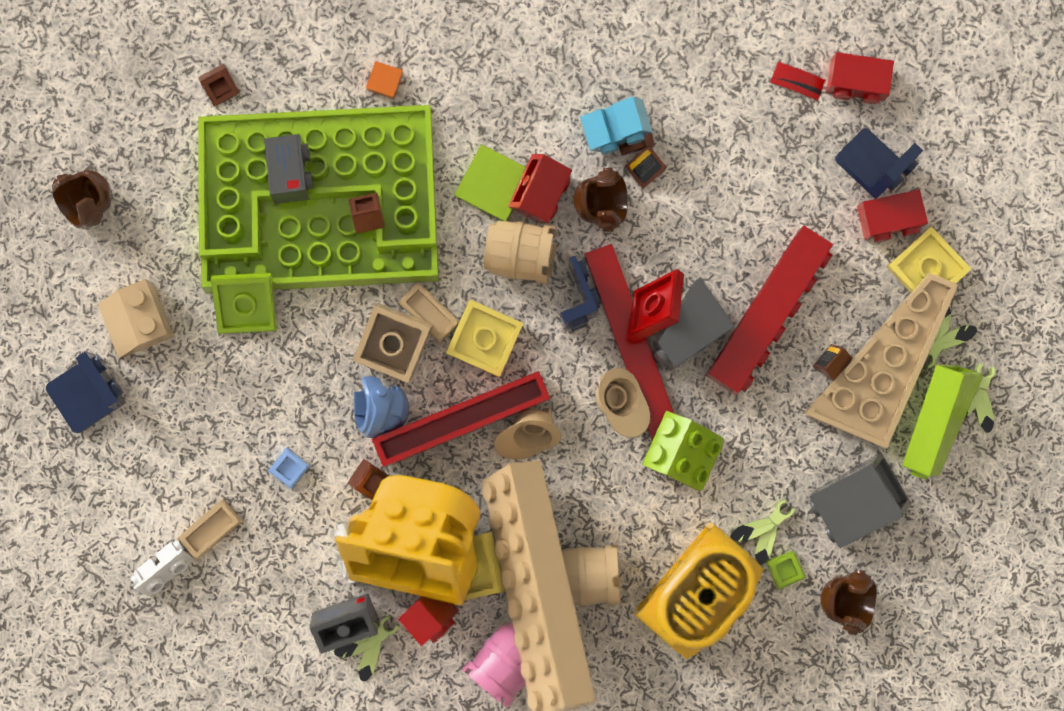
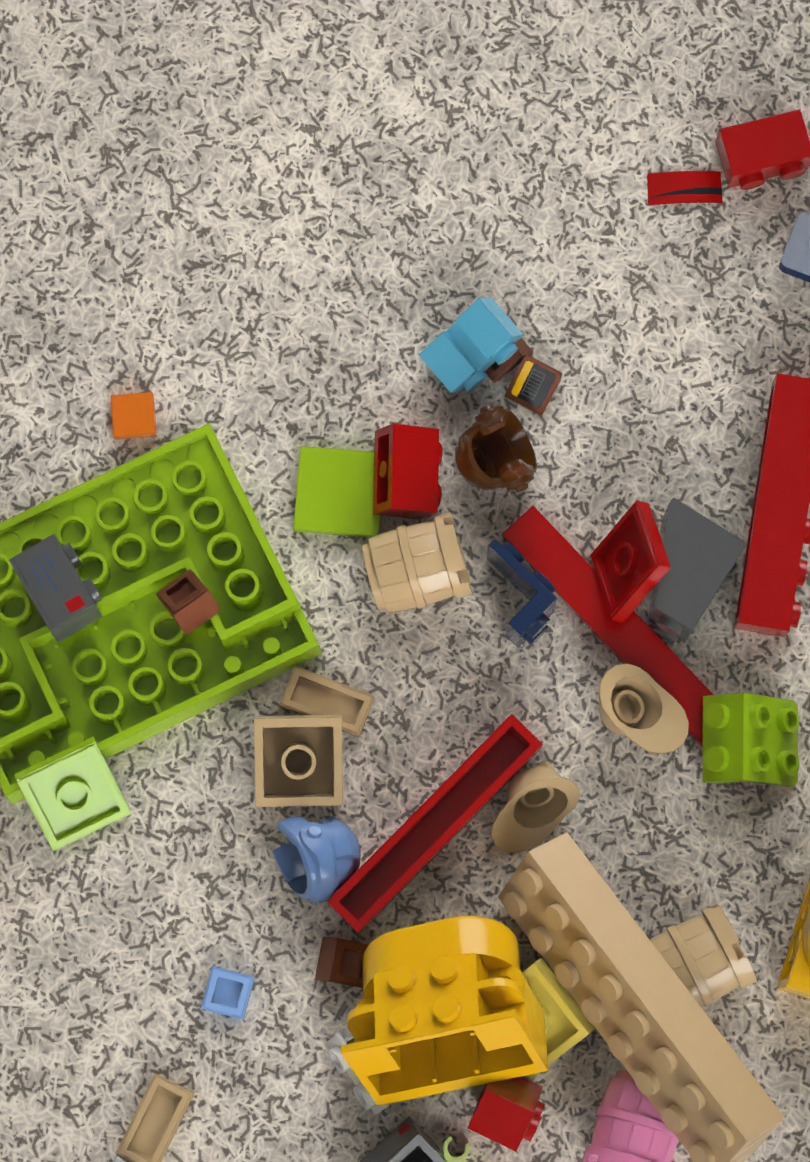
camera: 20 degrees left, 5 degrees down
(484, 338) = (417, 703): light yellow plate -> none

